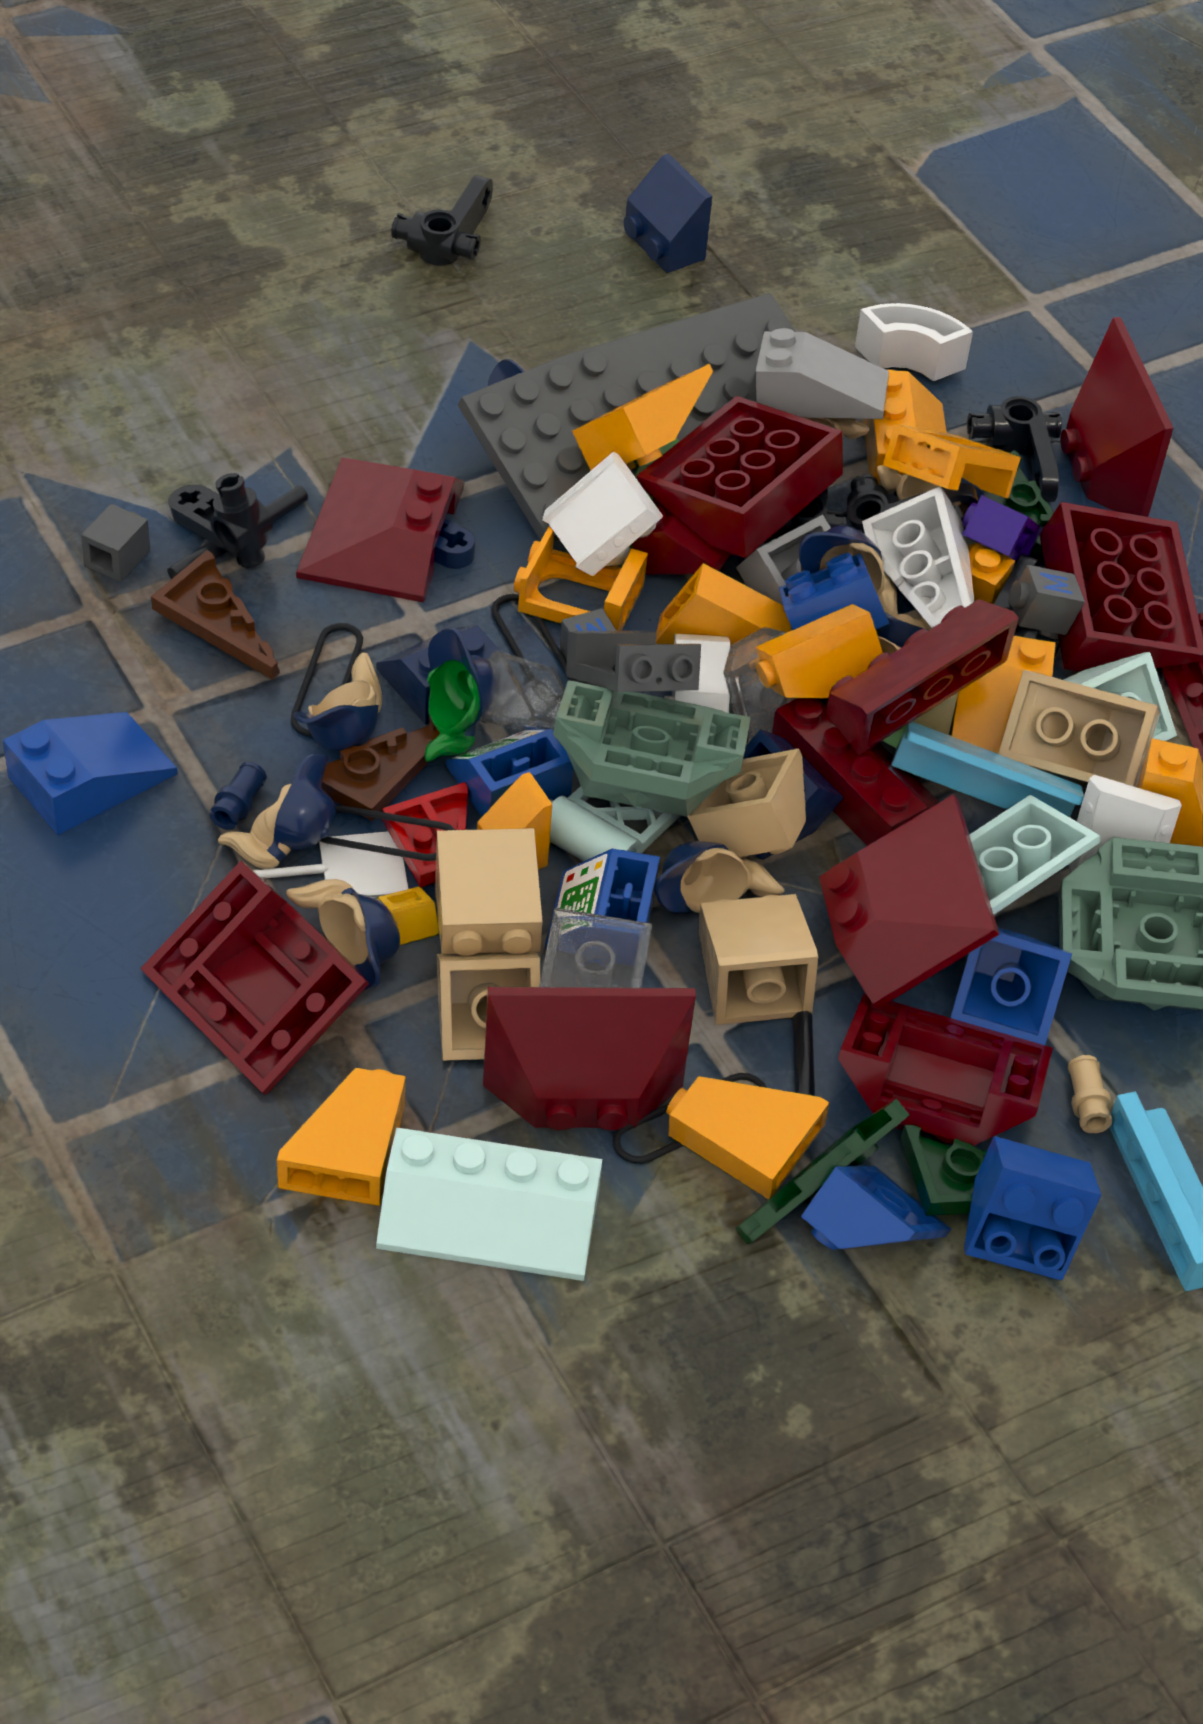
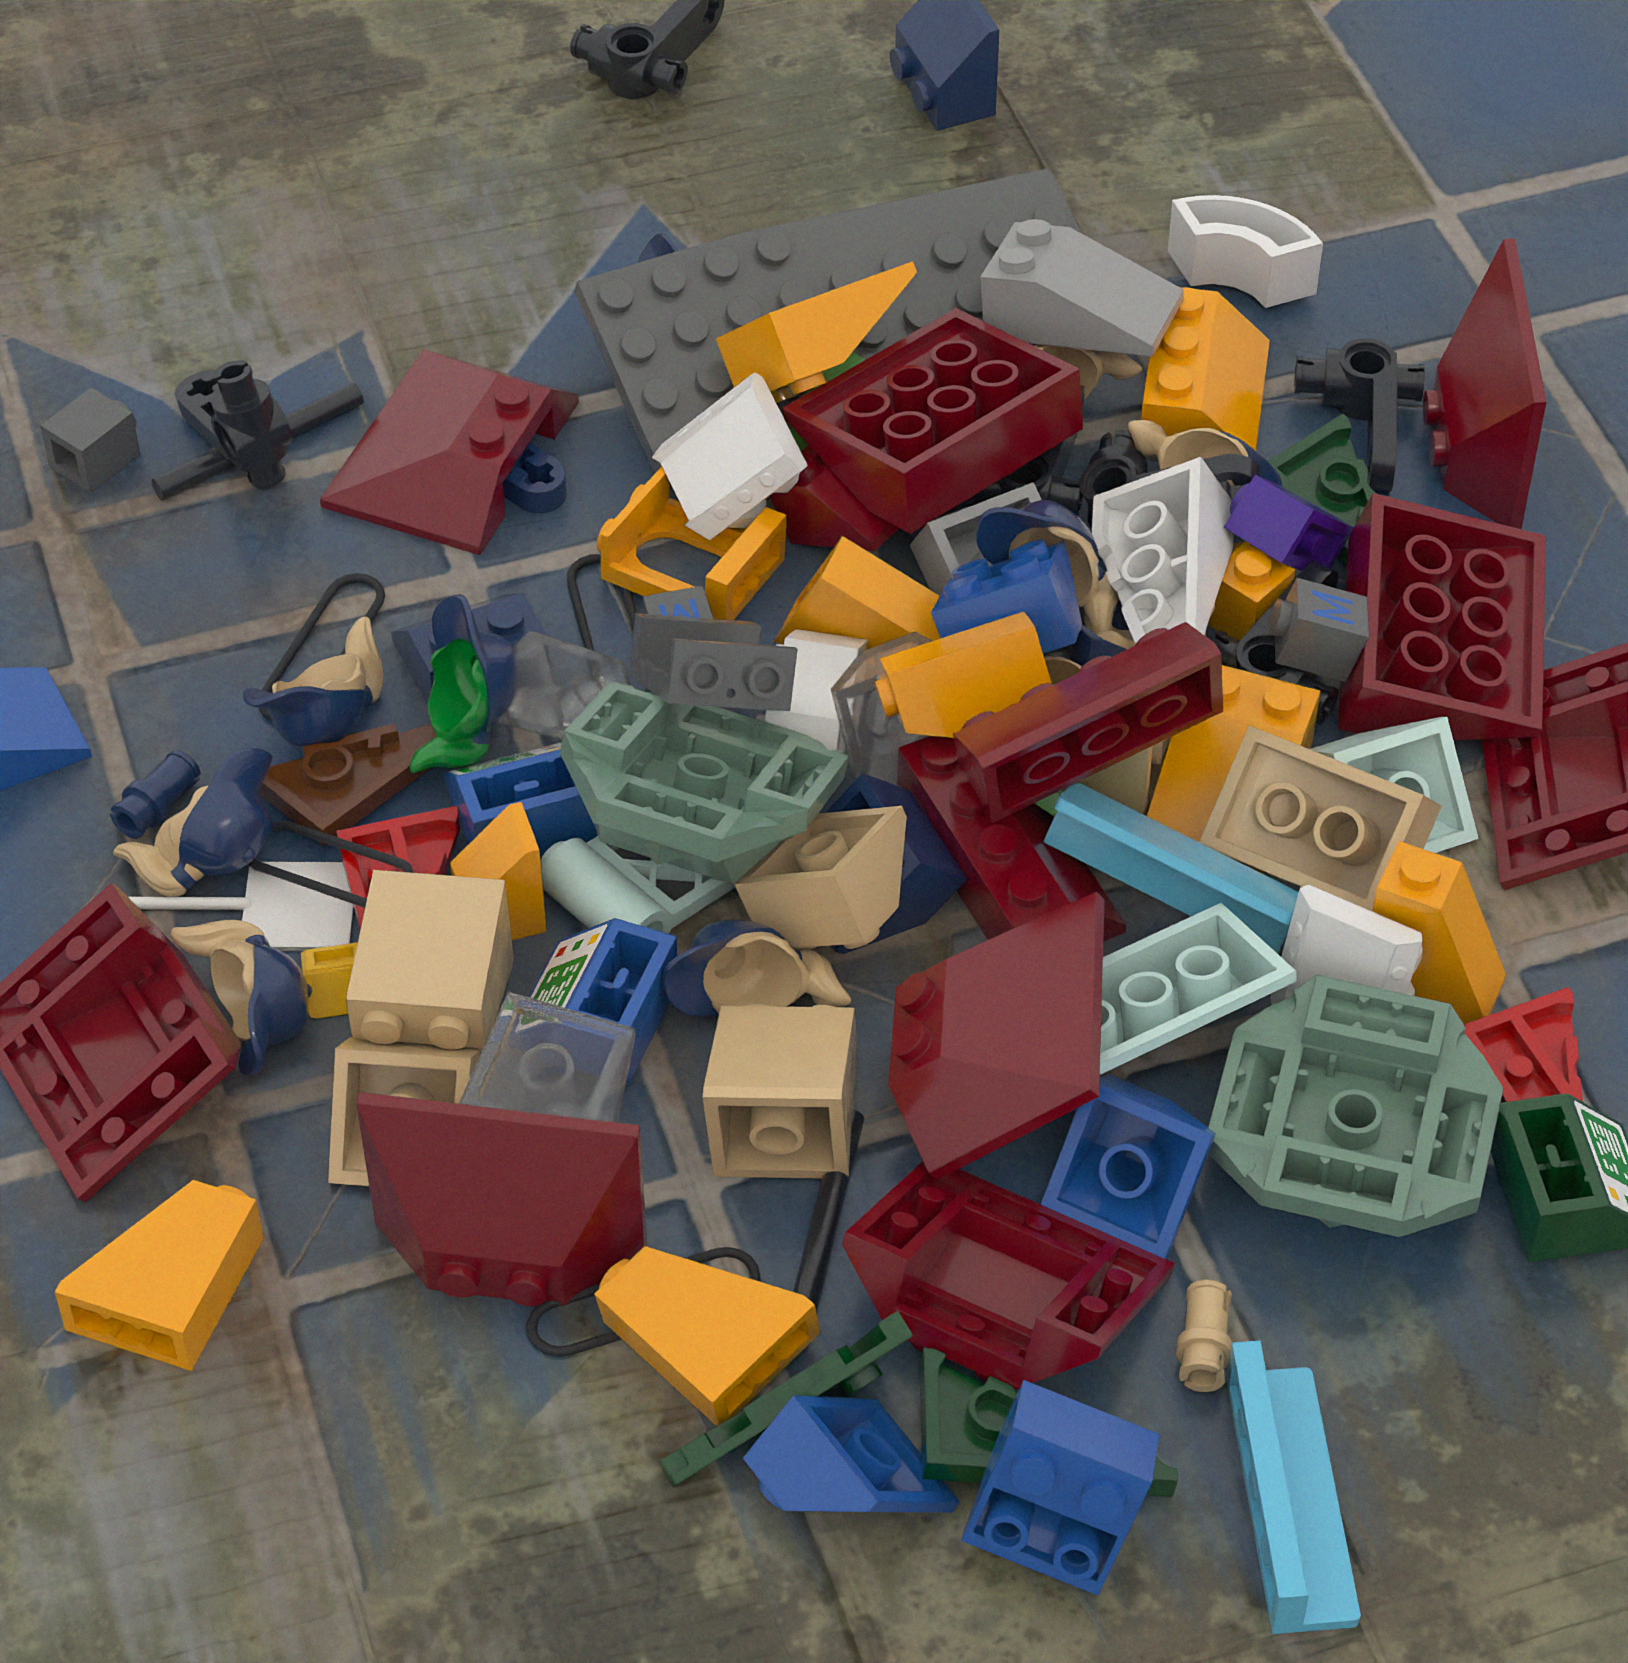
camera: 15 degrees right, 0 degrees up
(208, 608) = (188, 538): reddish brown wing -> none
(489, 1204) = (328, 1387): light aqua slope -> none
(948, 458) = (1208, 412): light orange panel -> none

